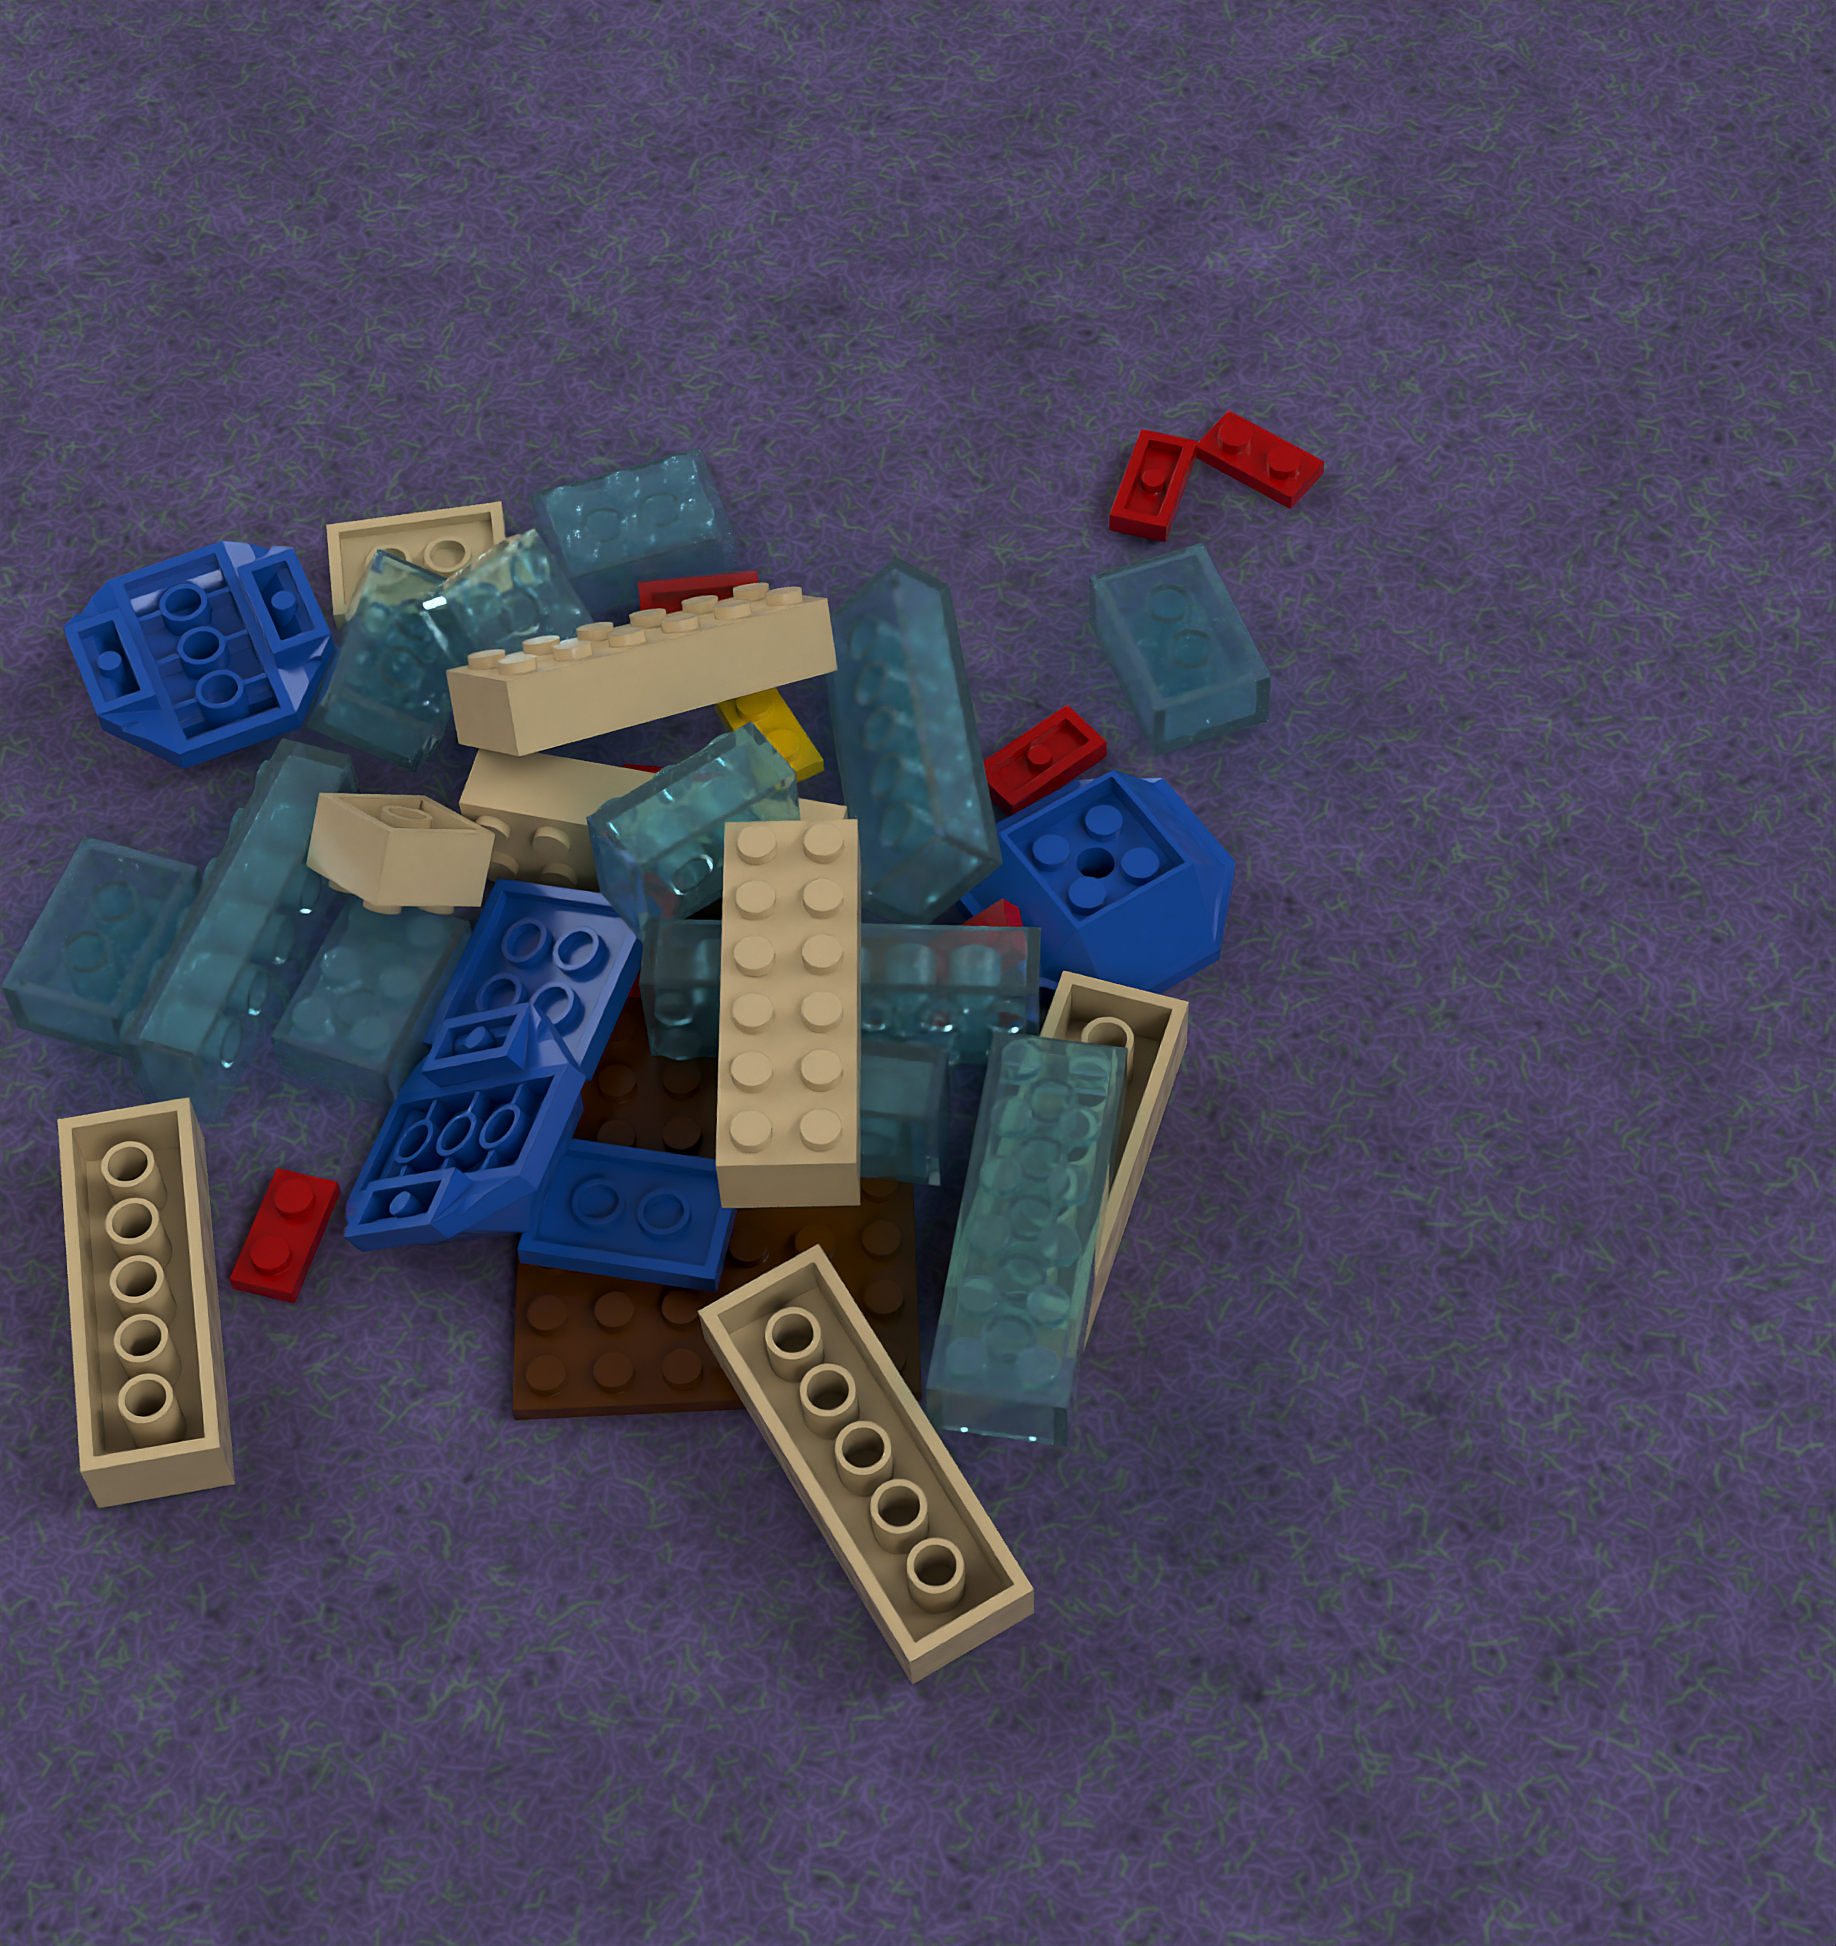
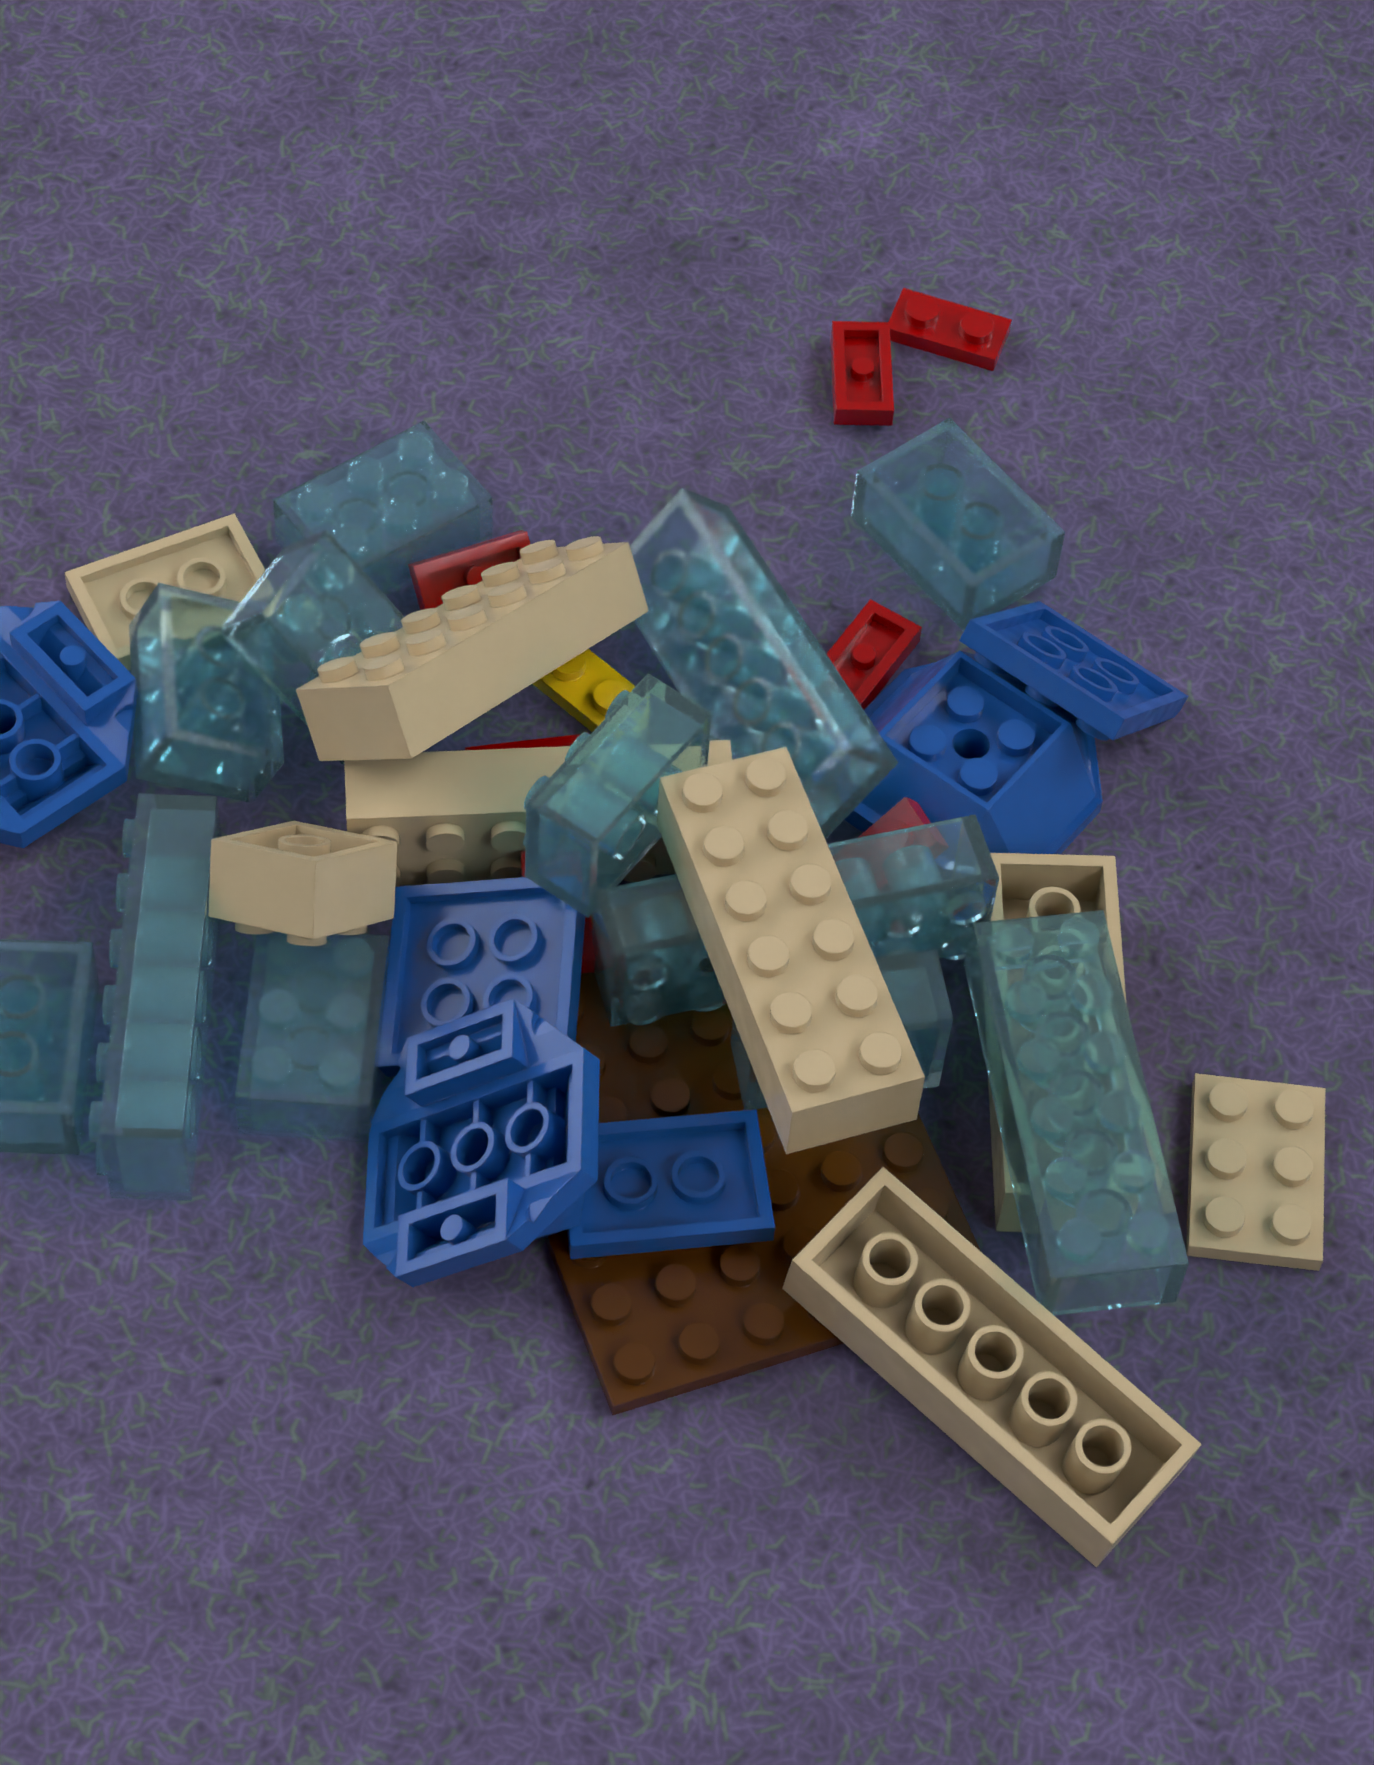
camera: 25 degrees left, 0 degrees up
(144, 1304) = (208, 1393): tan brick -> none
(285, 1235) = (310, 1291): red plate -> none
(1226, 1345) = (1256, 1172): none -> tan plate
(1229, 813) = (1072, 670): none -> blue plate

